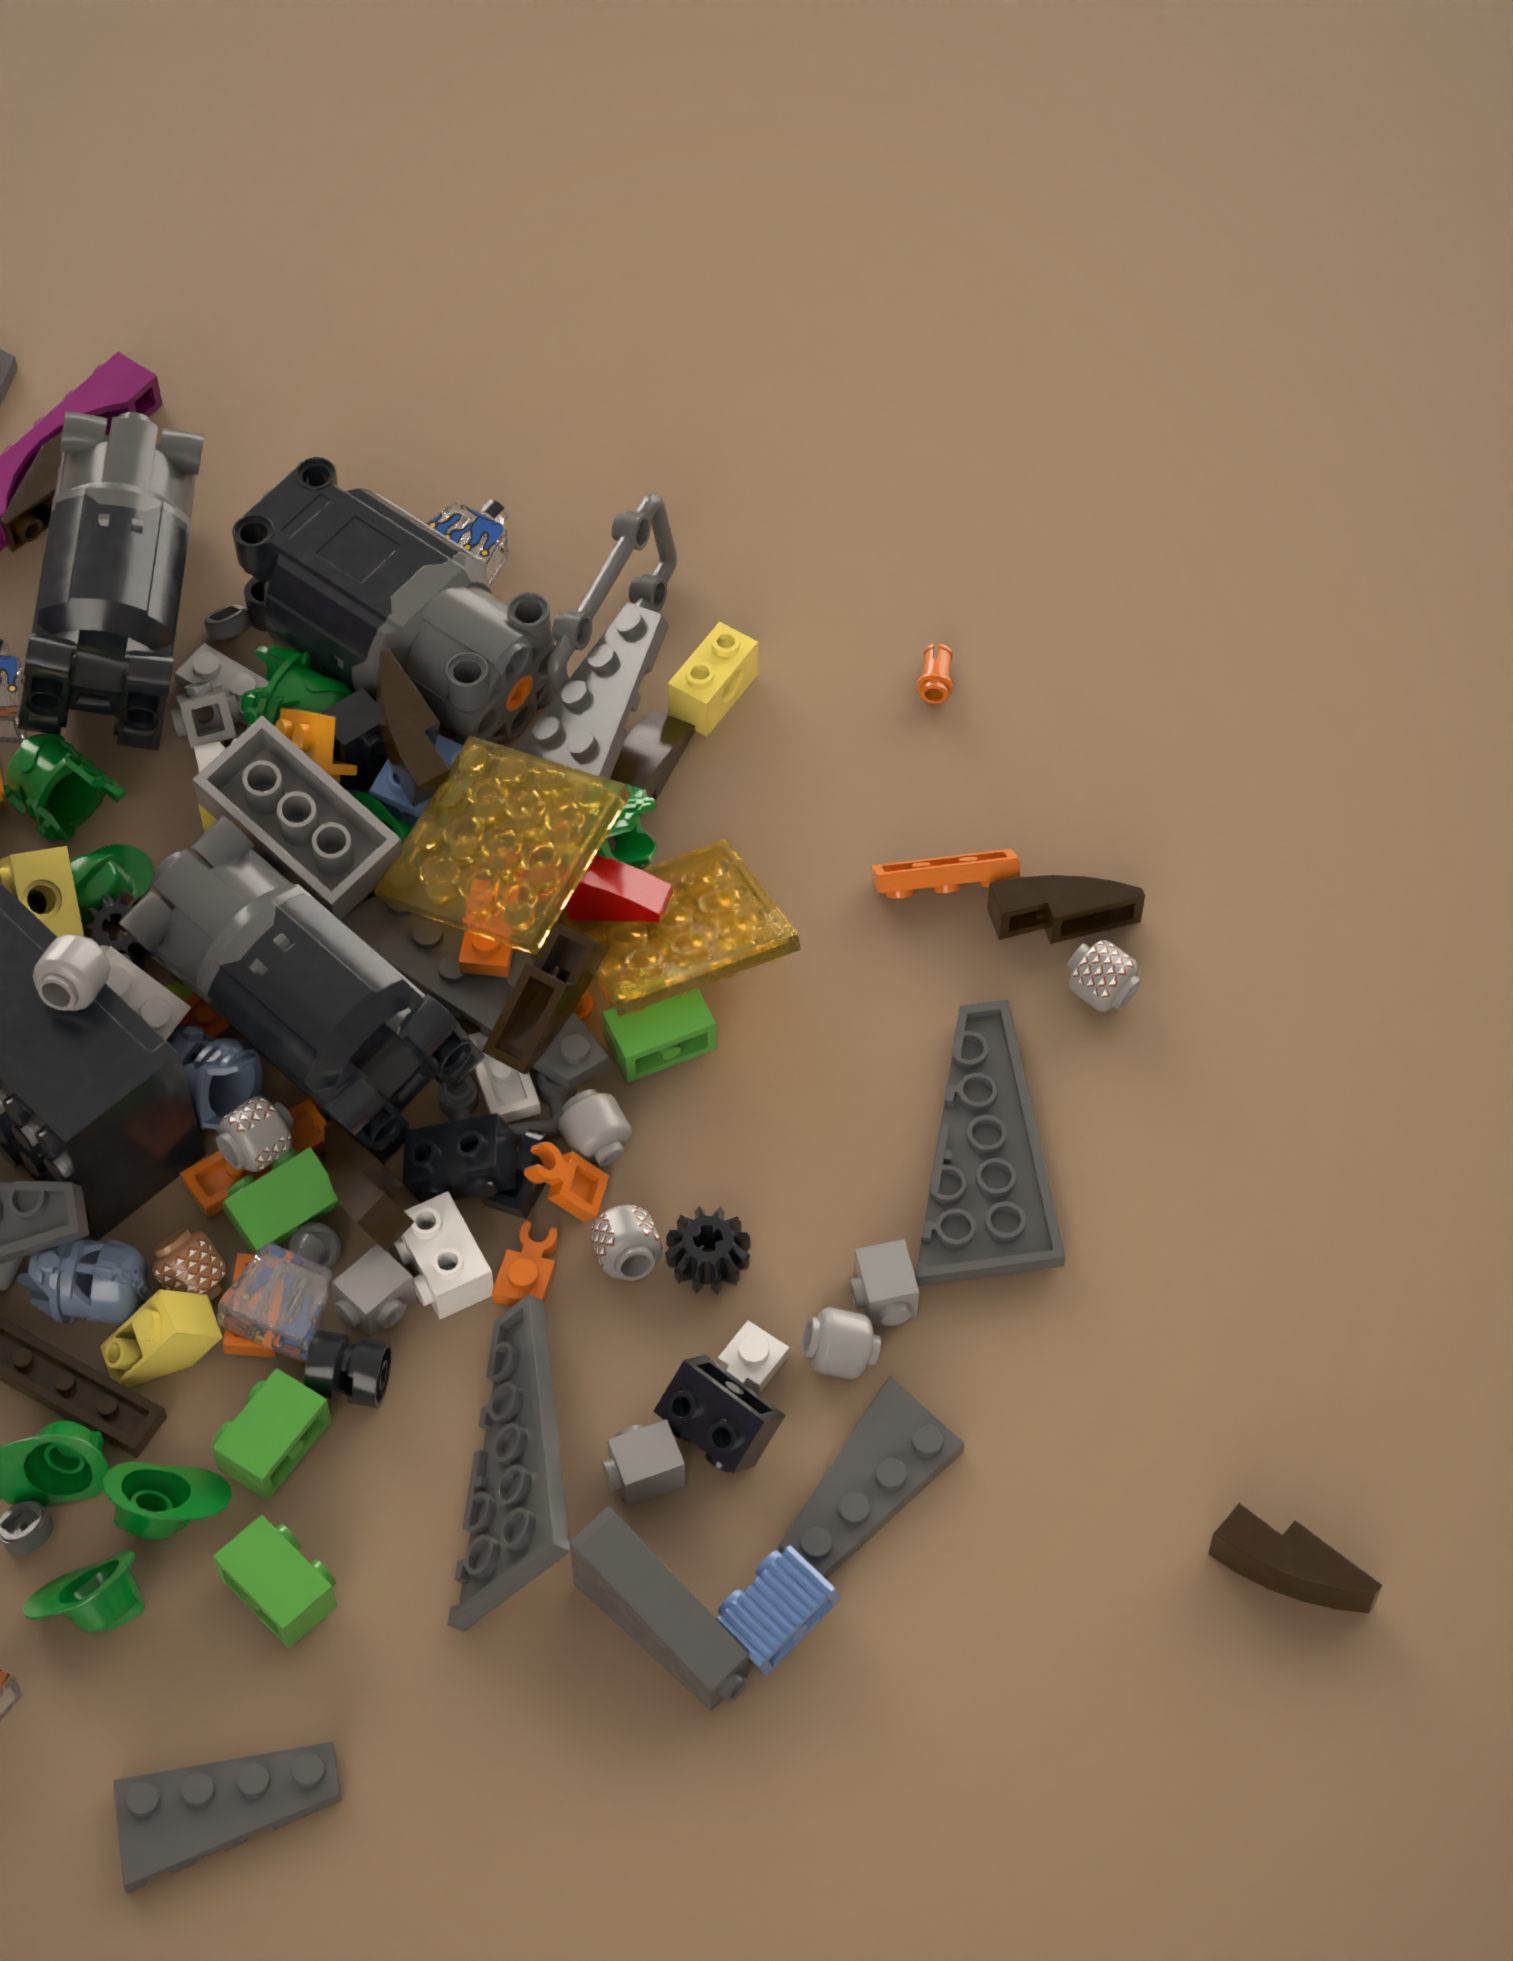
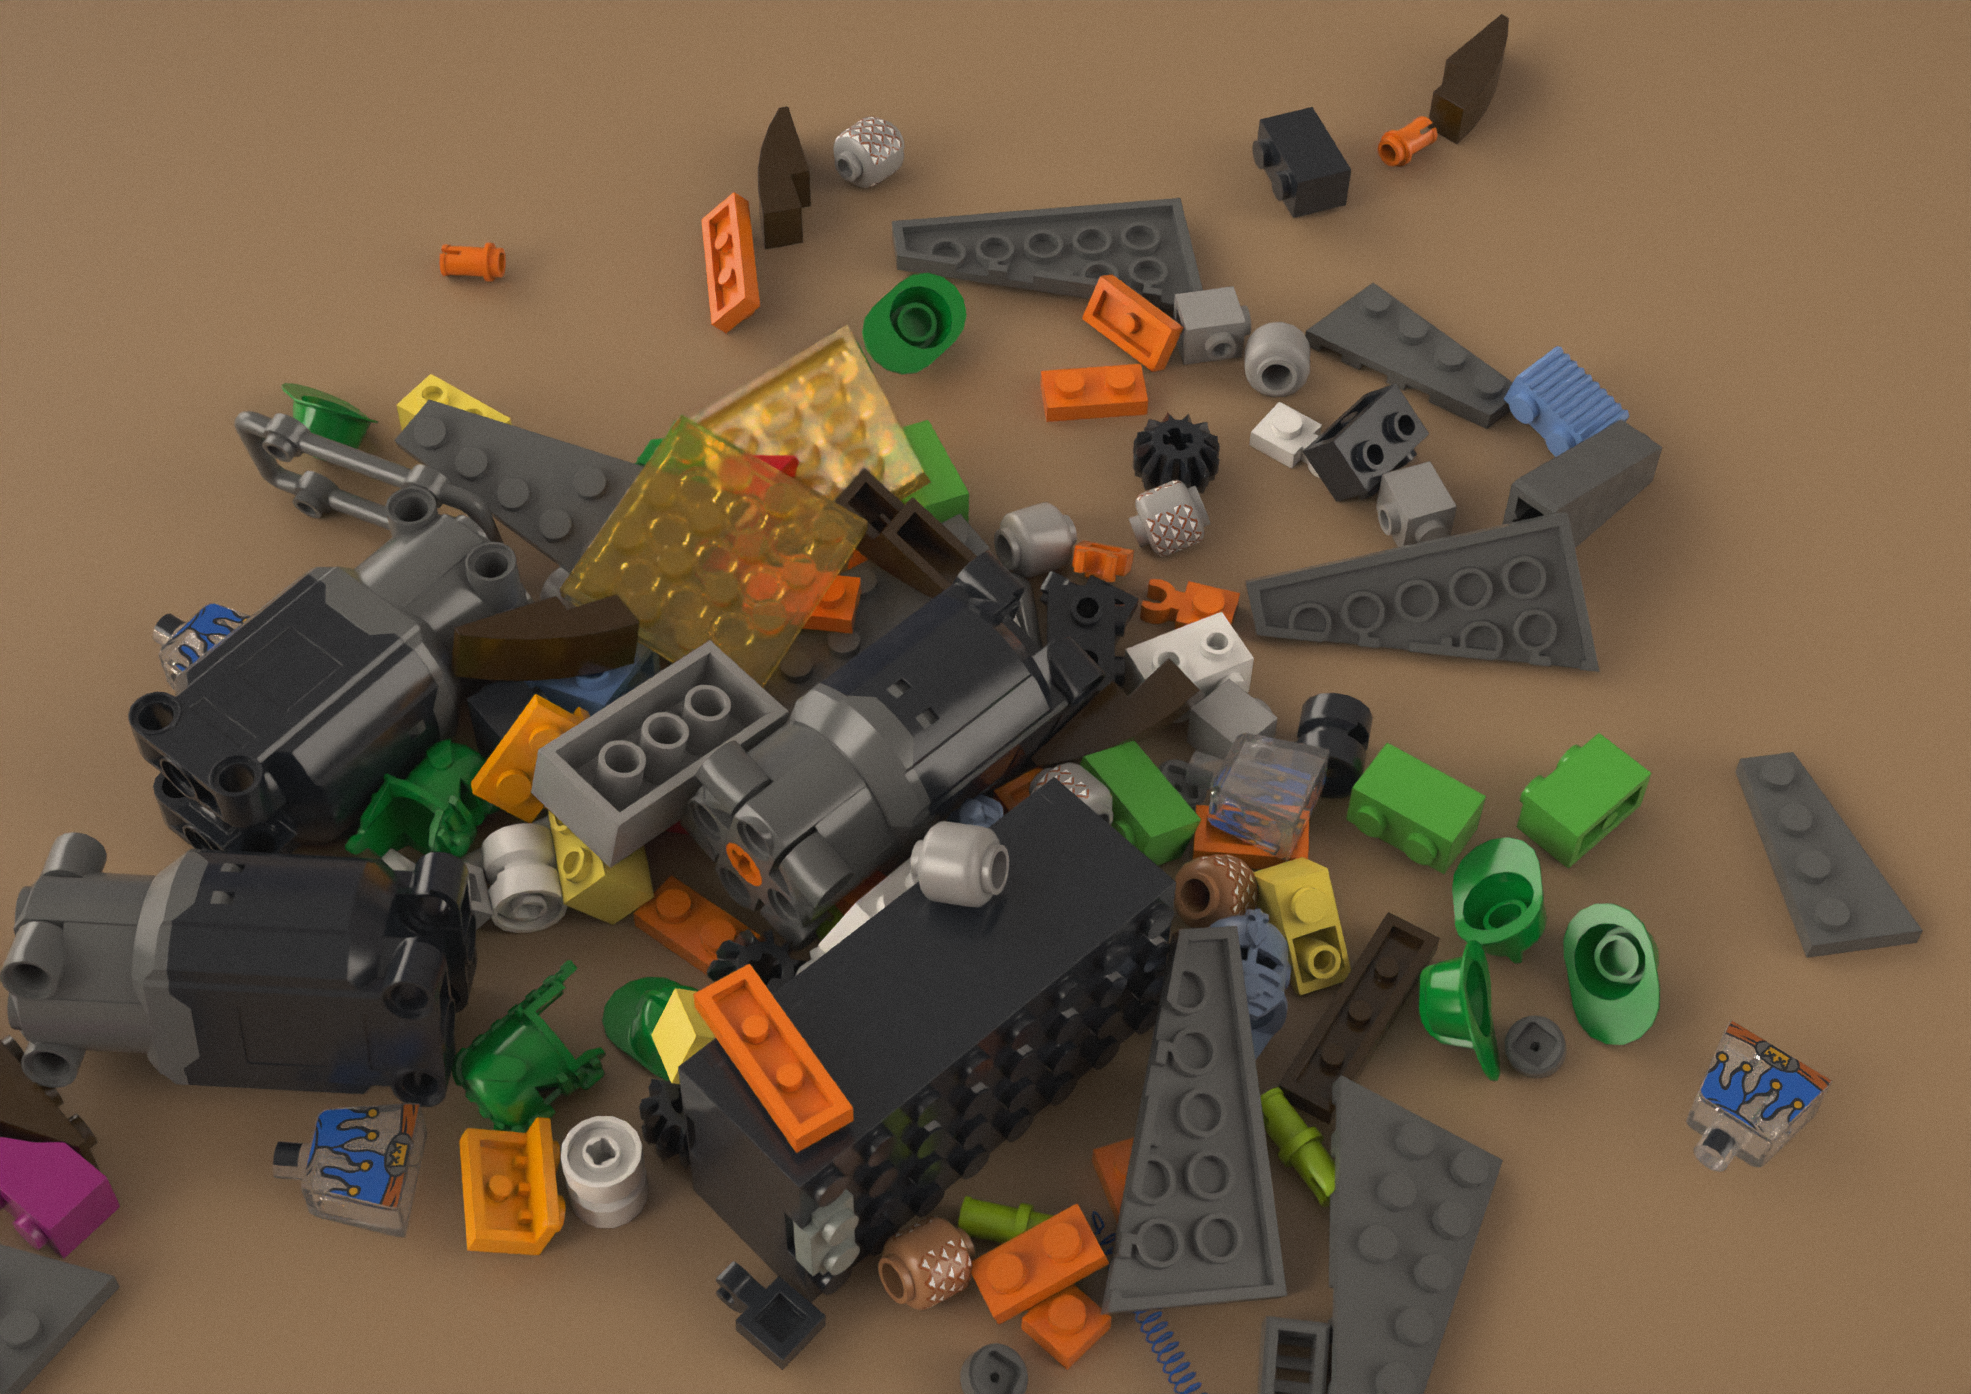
camera: 90 degrees left, 5 degrees down
(732, 583) = (328, 415): none -> green piece
(802, 1187) = (1094, 392): none -> orange plate
(852, 1014) = (914, 323): none -> green piece
(898, 1202) = (1132, 323): none -> orange plate
(1125, 1372) = (1302, 162): none -> black brick
(1187, 1490) = (1399, 146): none -> orange pin

